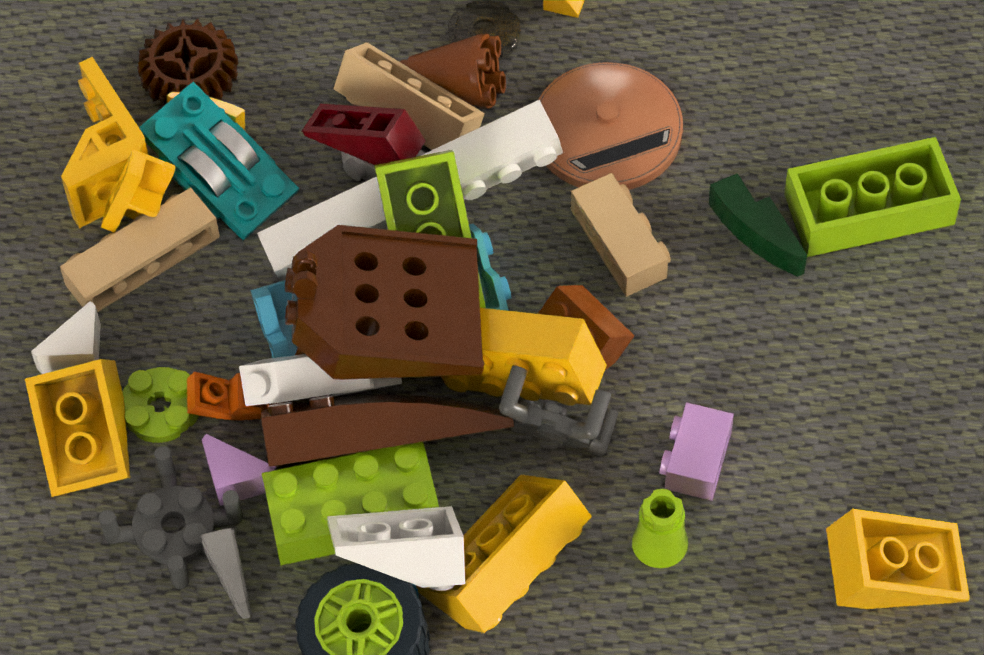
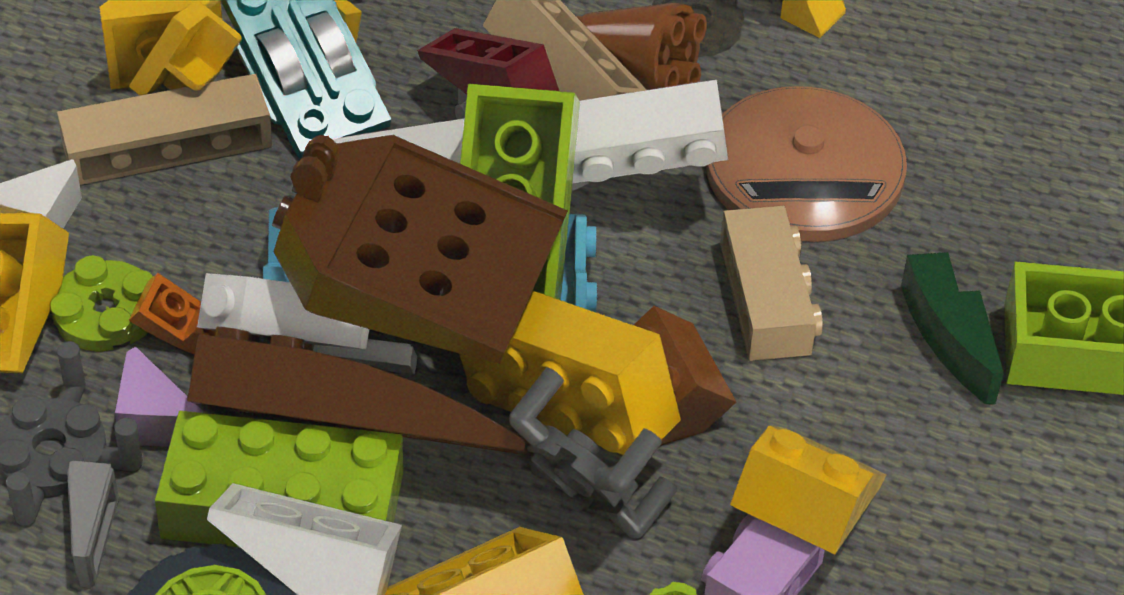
camera: 15 degrees right, 10 degrees down
(710, 385) = (805, 487): none -> yellow slope

